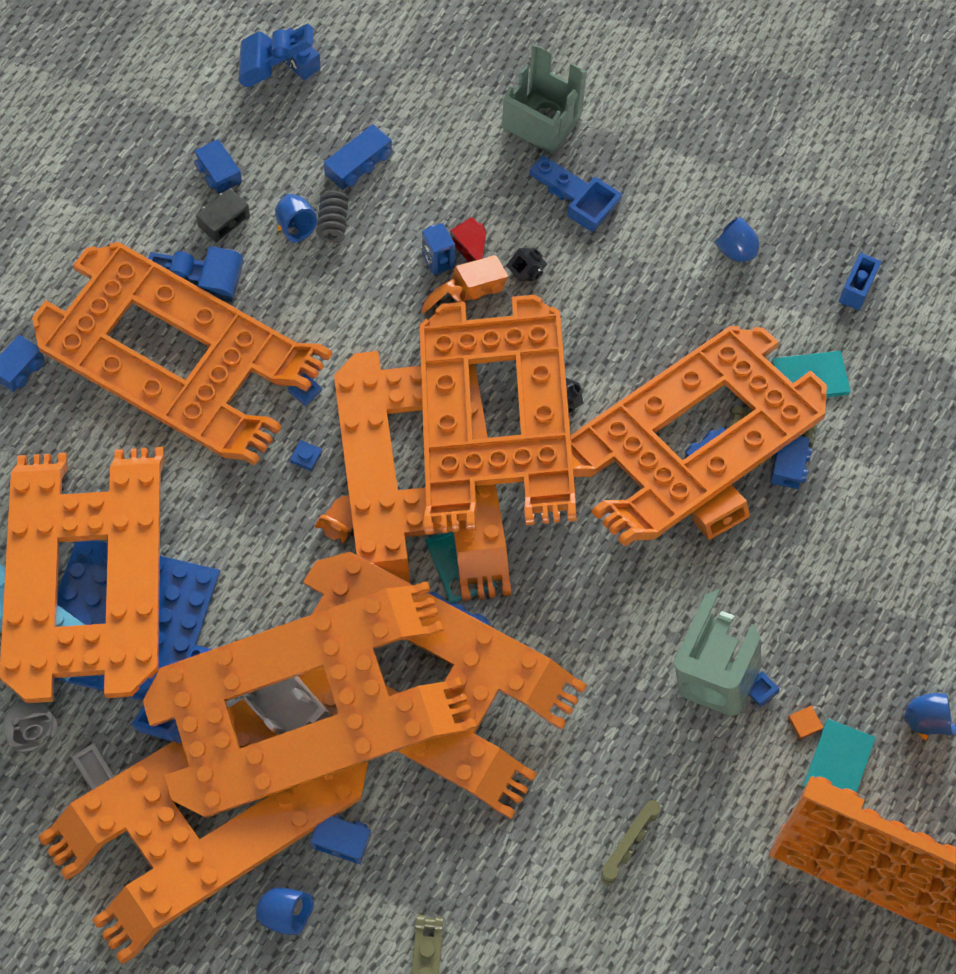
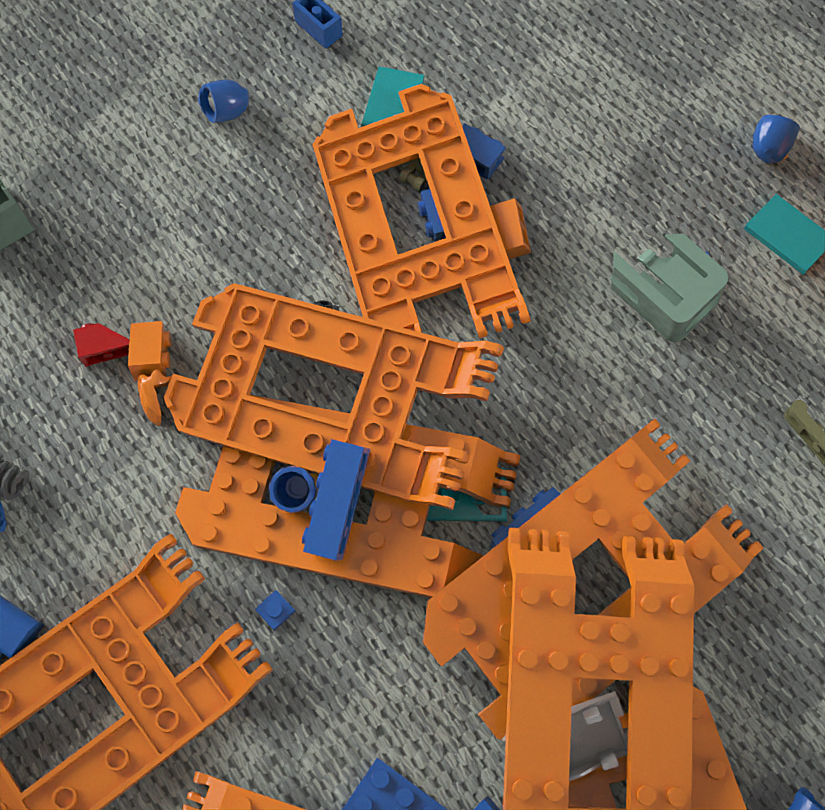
camera: 65 degrees left, 5 degrees up
(305, 397) = (203, 588): blue plate -> none
(337, 520) = (369, 602): orange piece -> none
(342, 838) = (742, 729): blue brick -> none
(403, 423) = (293, 489): none -> blue piece
(404, 454) = (336, 500): none -> blue brick
(438, 248) = (94, 377): blue brick -> none
(527, 264) = (152, 306): black brick -> none
(589, 201) = (109, 211): blue plate -> none
(805, 722) = (742, 245): orange tile -> none

